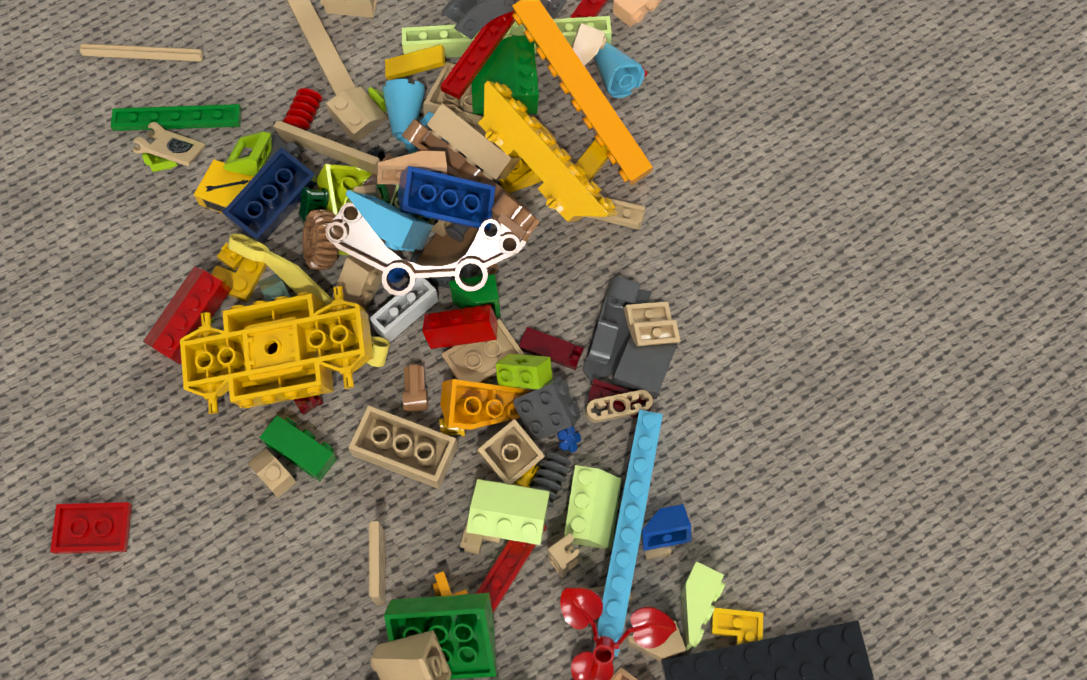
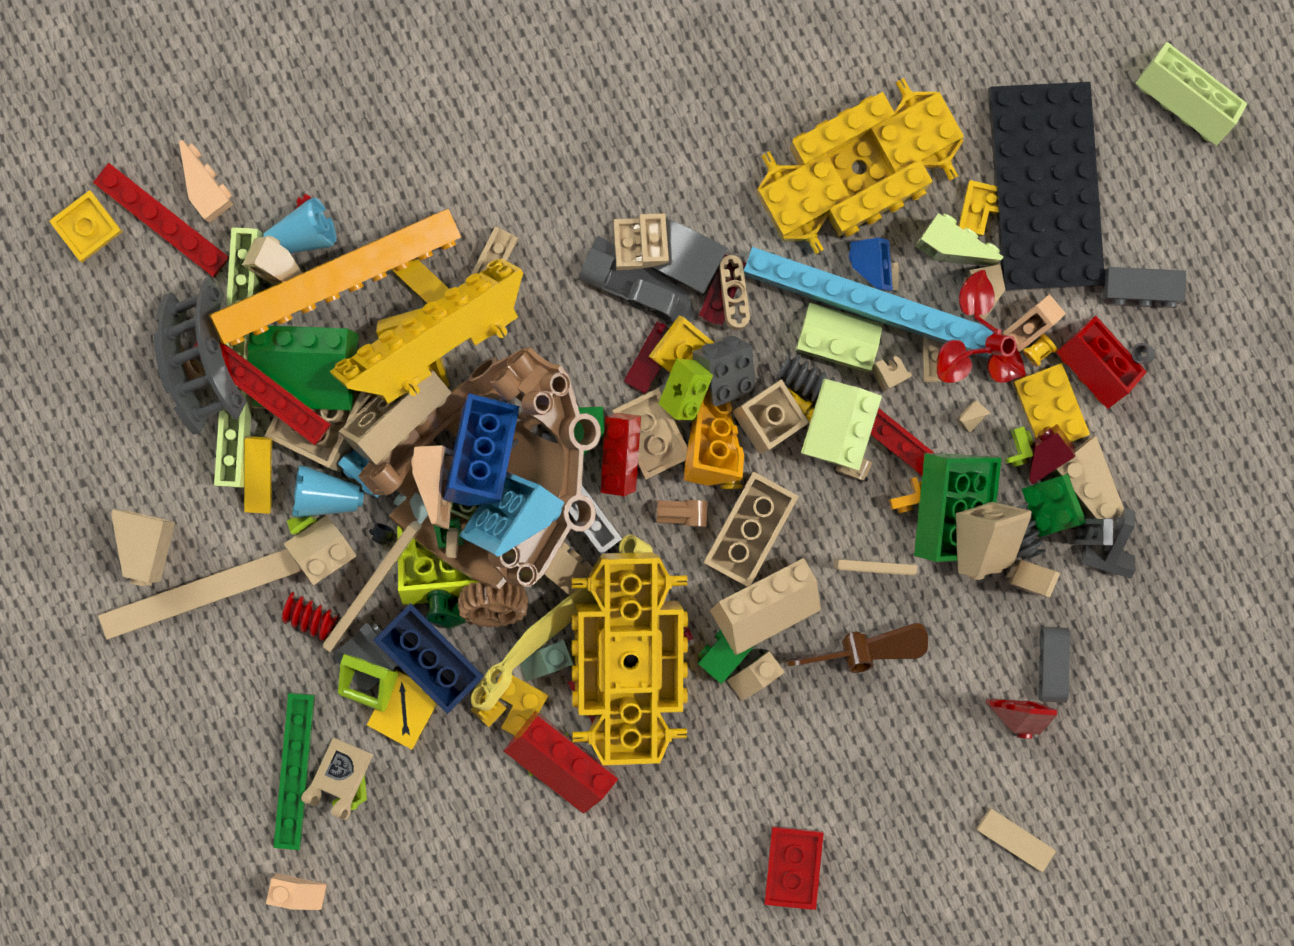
camera: 80 degrees left, 20 degrees up
(75, 128) = (295, 893): none -> light nougat slope
(141, 52) = (191, 814): tan axle -> none
(298, 561) = (901, 643): none -> reddish brown piece
(331, 468) = (768, 606): none -> tan slope
(533, 644) = (972, 416): none -> tan slope
(567, 365) = (678, 343): none -> yellow plate
(569, 439) = (761, 352): blue plant -> none
(779, 535) = (891, 146): none -> yellow piece

